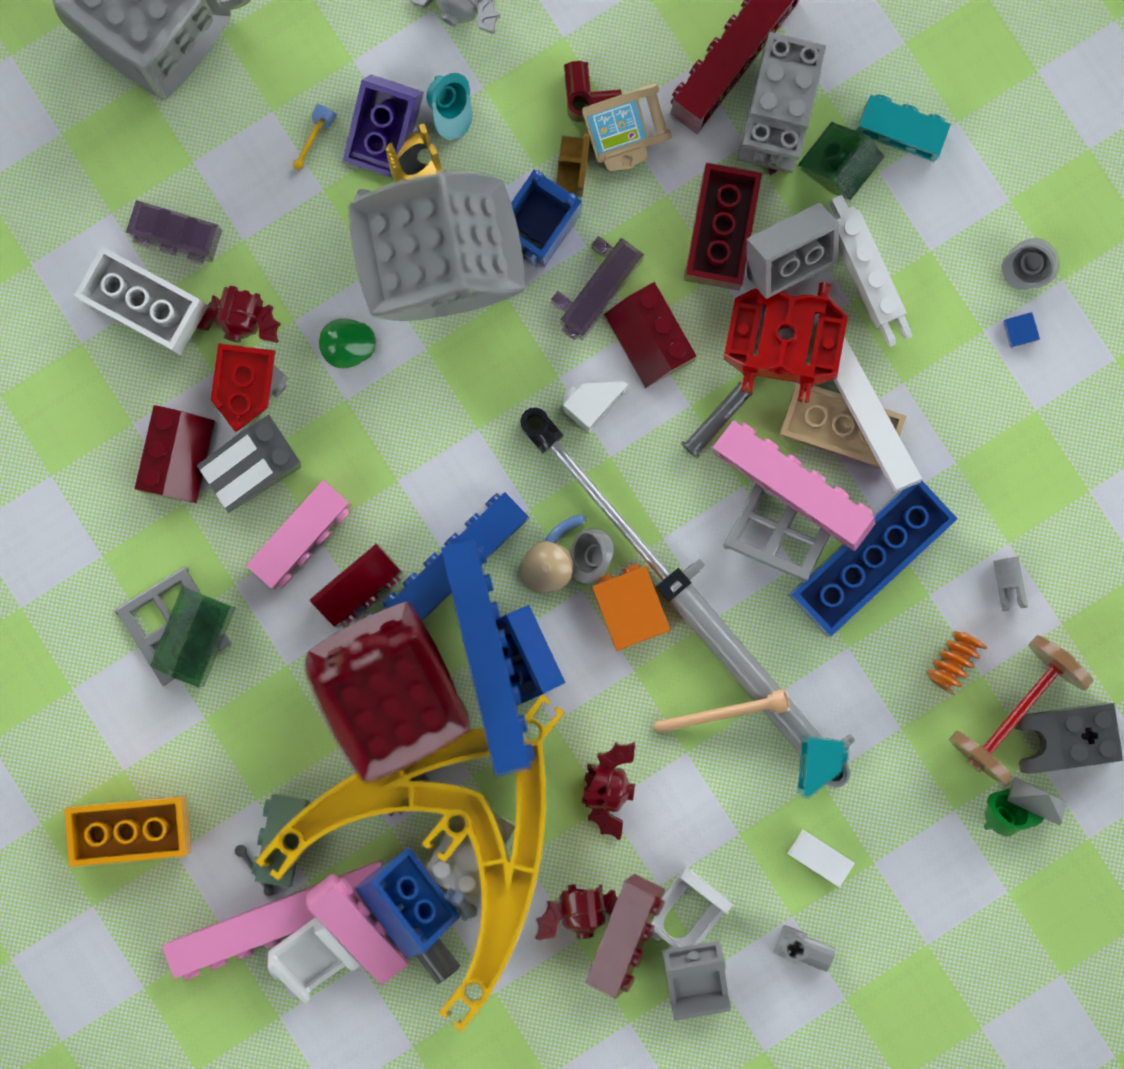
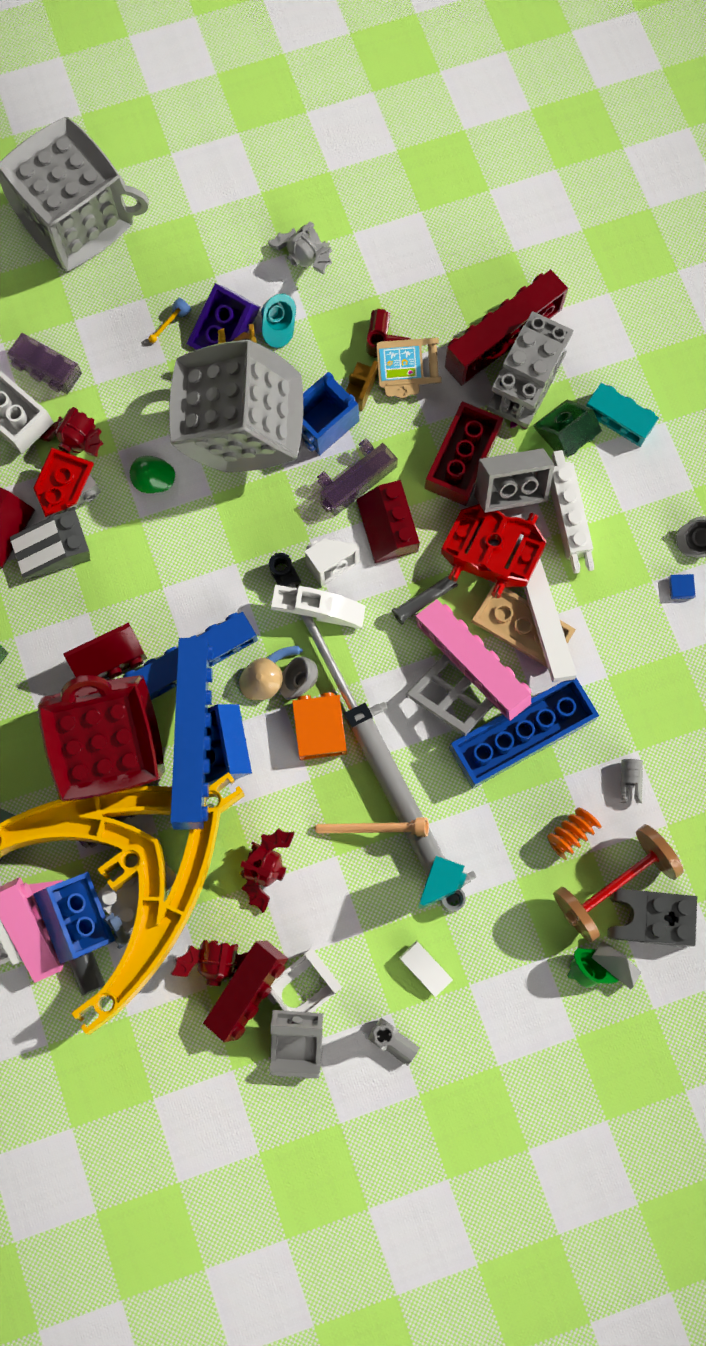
camera: 15 degrees right, 10 degrees down
(298, 535) = (73, 609): bright pink brick -> none
(593, 462) = (319, 604): none -> white slope

